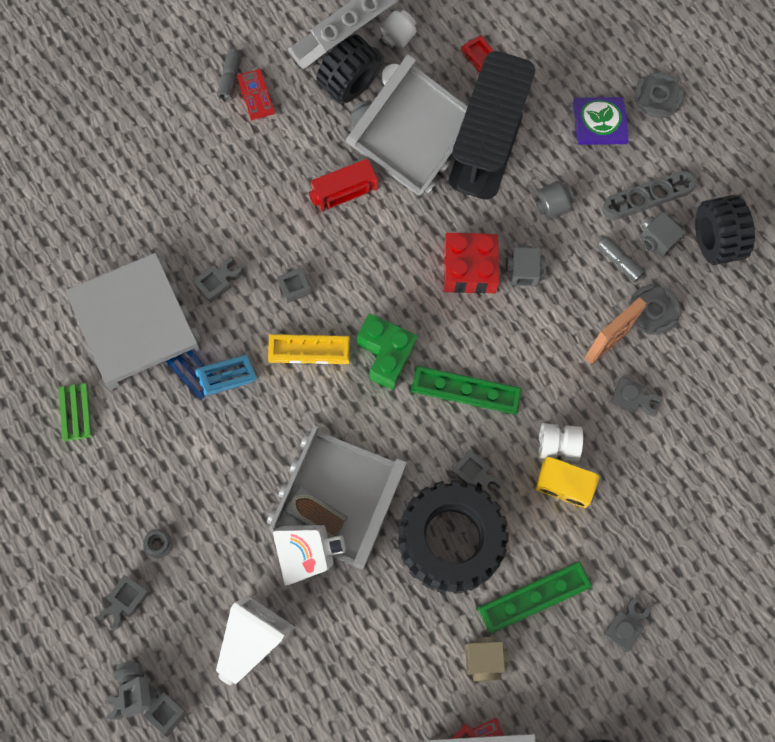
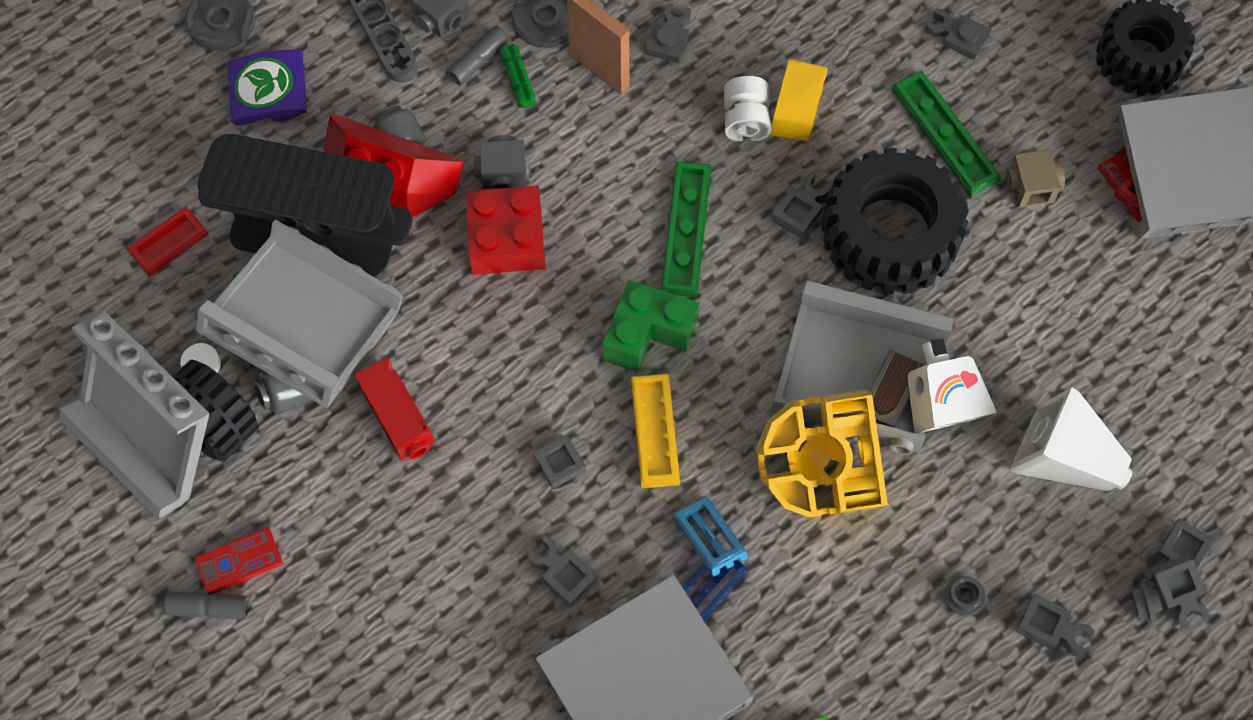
camera: 90 degrees left, 5 degrees down
(289, 464) = (787, 432): none -> yellow connector
(525, 190) = (420, 173): none -> red wedge
(602, 285) = (517, 76): none -> green axle

